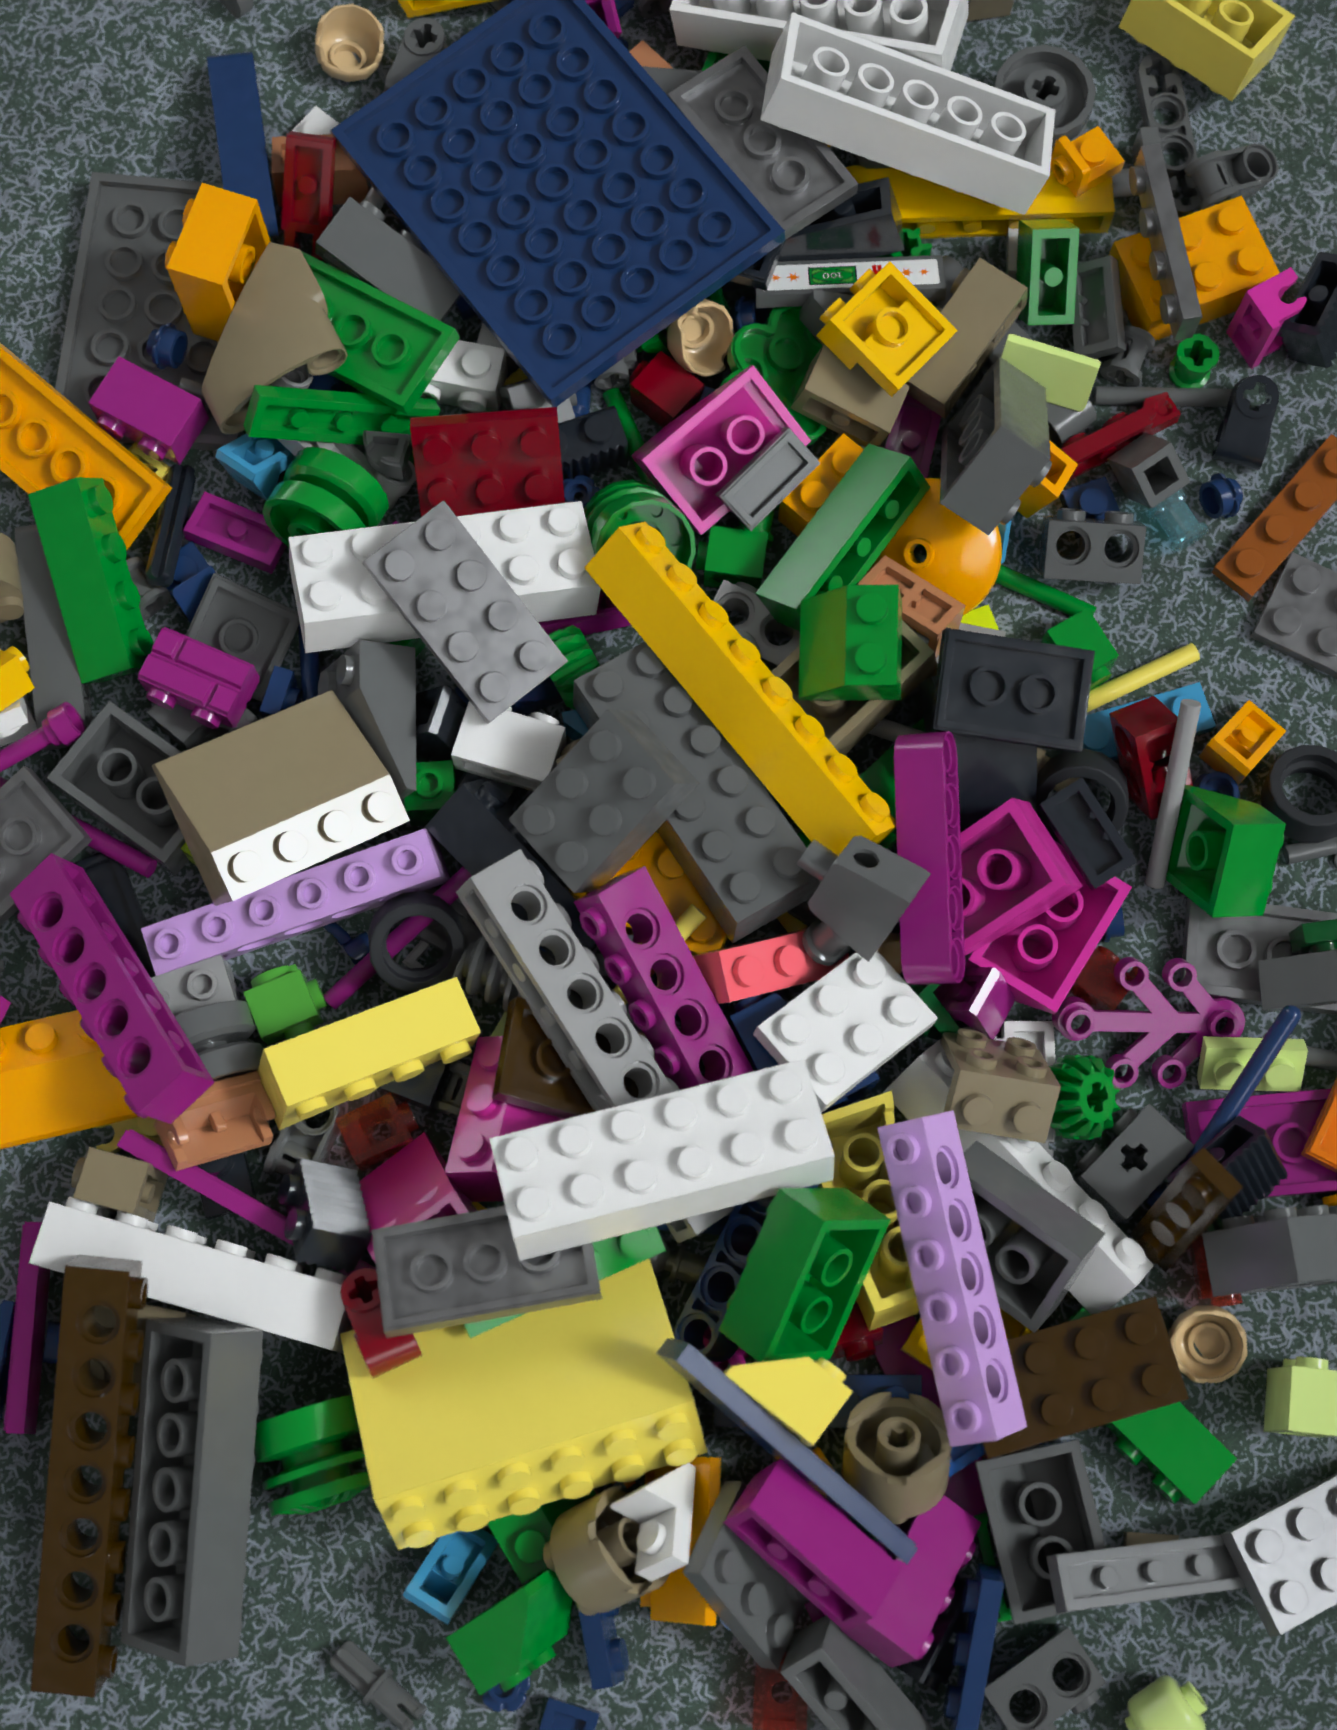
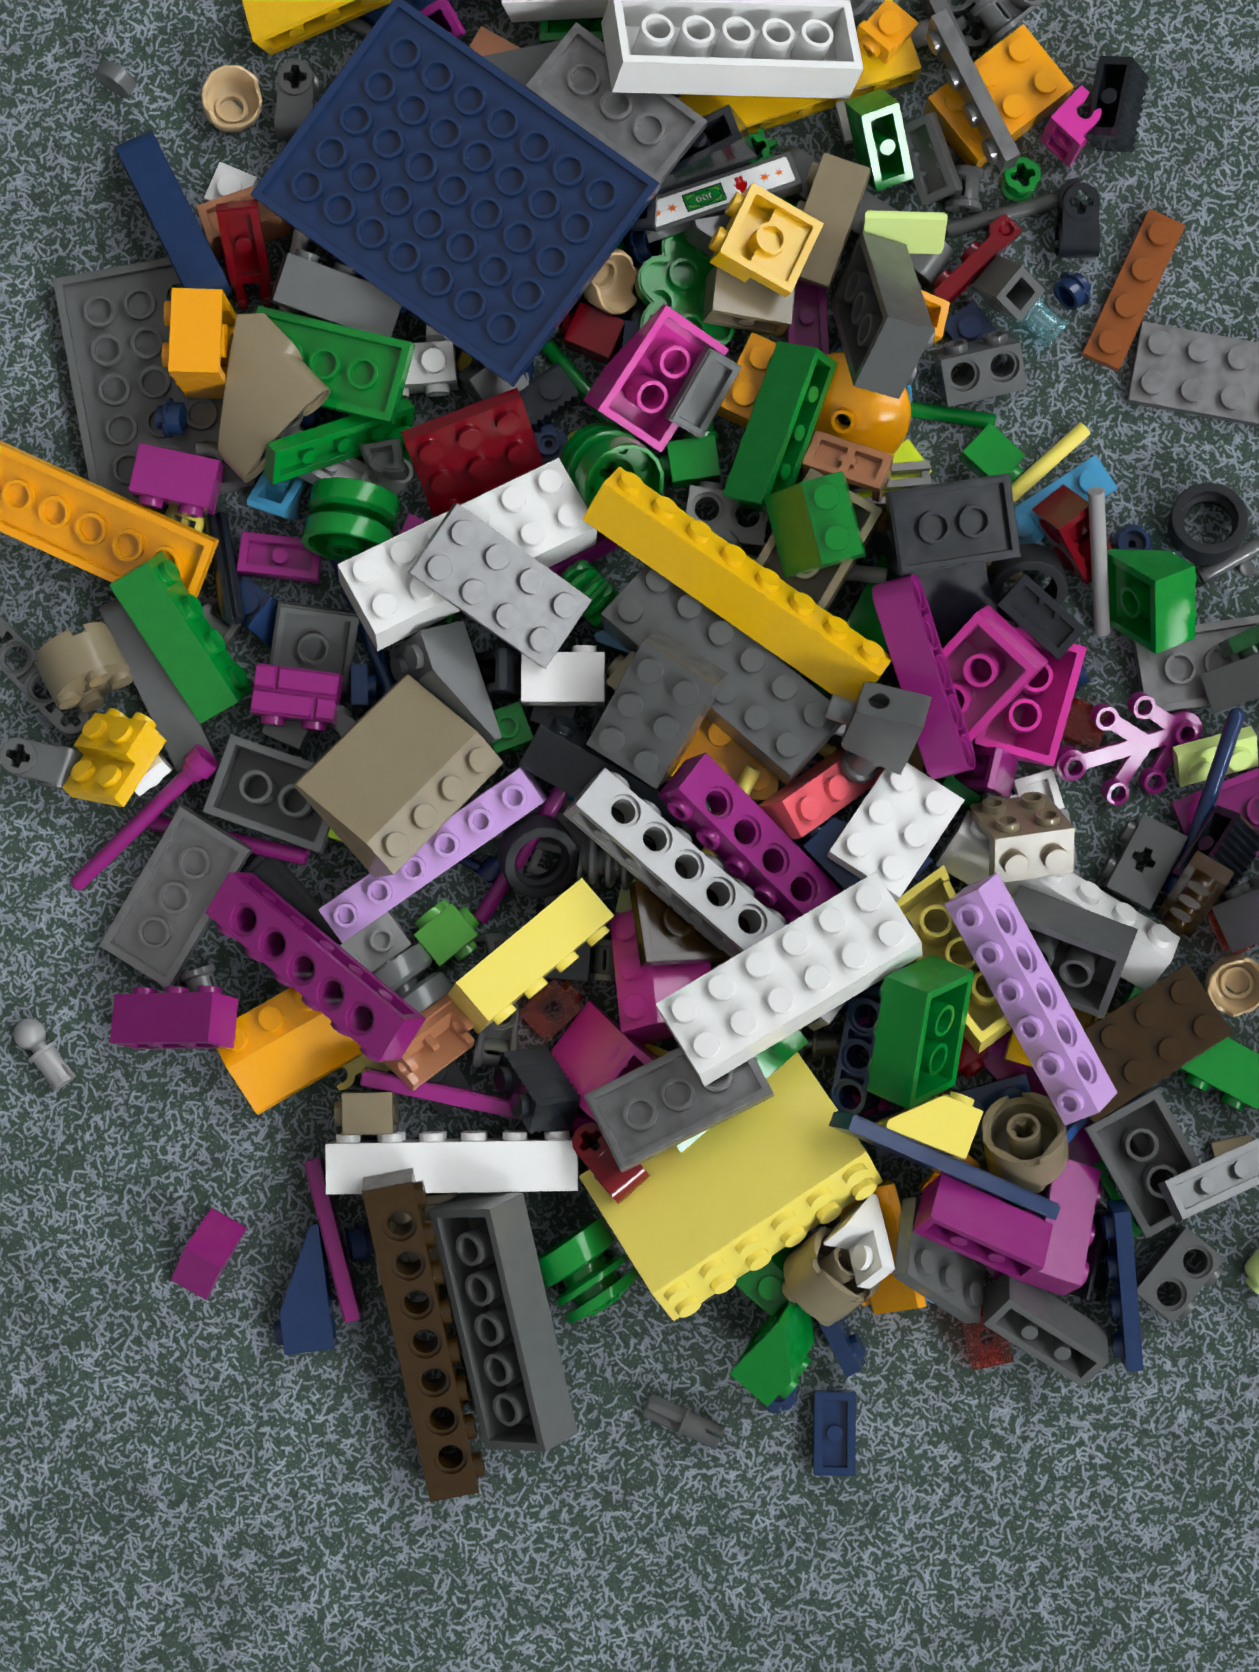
camera: 15 degrees left, 10 degrees up
(450, 1572) = (714, 1326): dark azure slope -> none
(1084, 1097) = (1093, 822): green gear -> none
(1242, 742) = (1144, 495): light orange slope -> none

